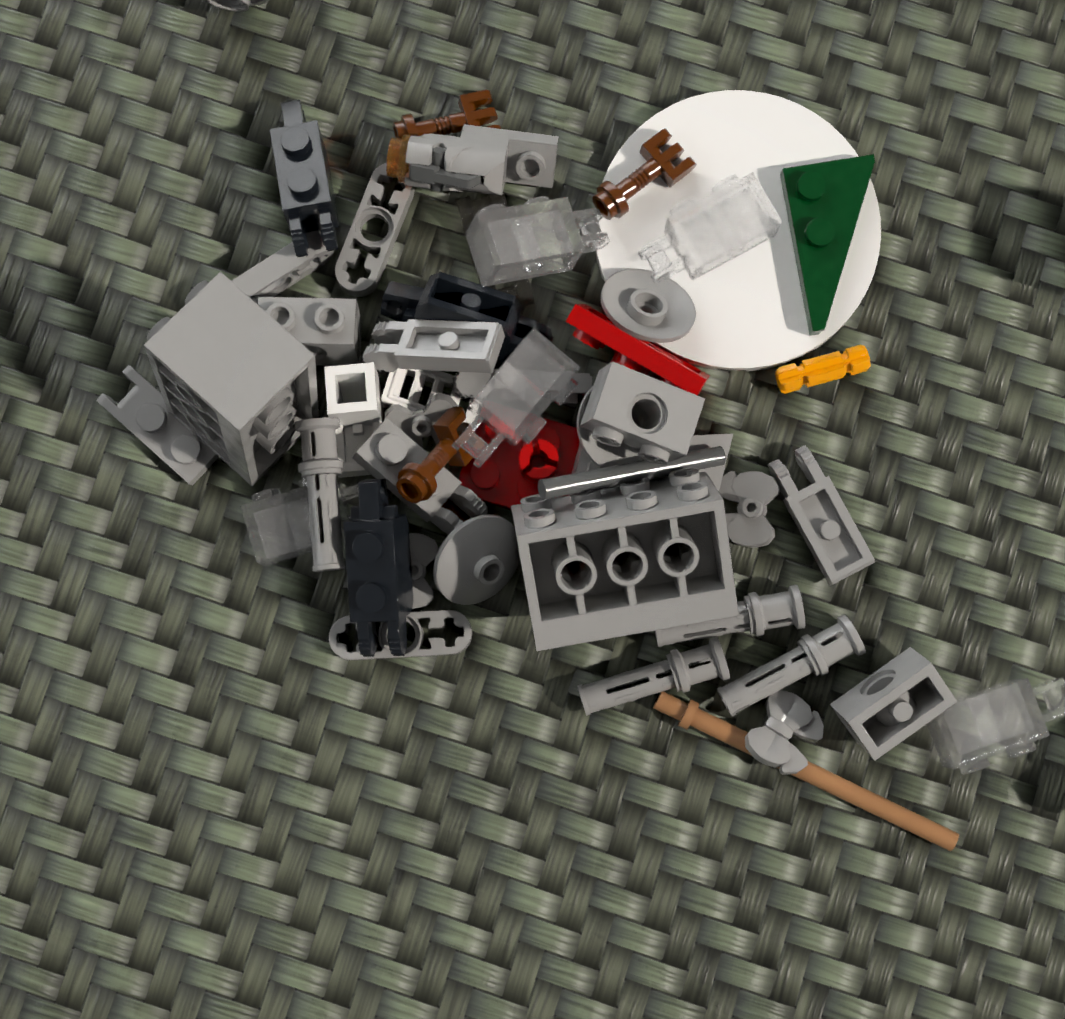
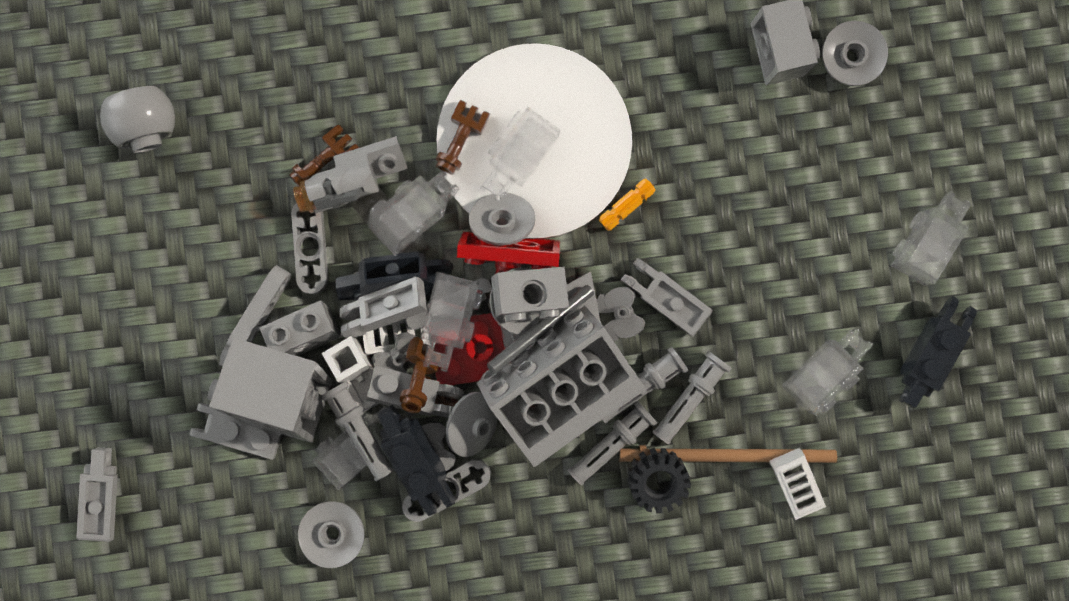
camera: 25 degrees left, 5 degrees up
(193, 616) = (319, 546): none -> light grey dish
(304, 179) = (251, 238): hinge -> none
(695, 785) = (663, 497): none -> black tyre
(786, 717) = (702, 427): light grey piece -> none
(822, 216) = (583, 109): dark green wing -> none
(892, 817) = (788, 462): none -> white slope
(893, 703) = (761, 393): light grey brick -> none

